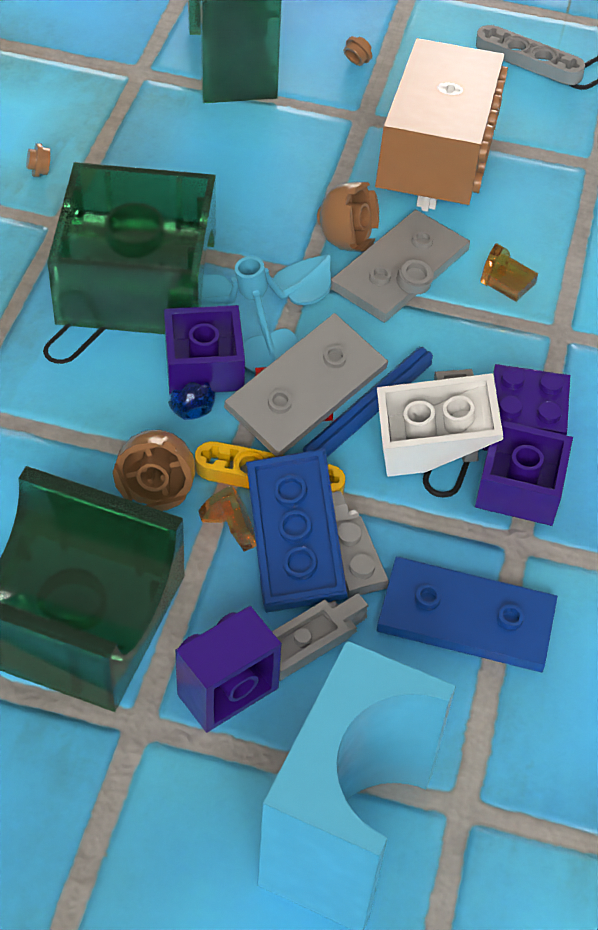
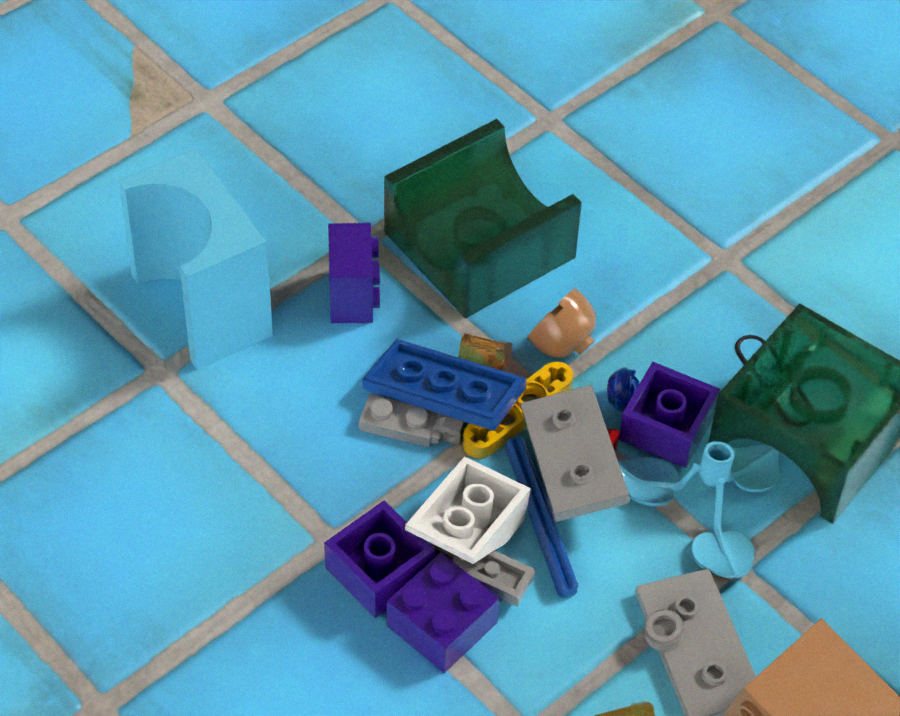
camera: 125 degrees right, 0 degrees up
(318, 632) = (349, 351): light grey hinge -> none
(349, 216) = (772, 617): medium nougat cylinder -> none
(468, 614) = (294, 460): blue plate -> none

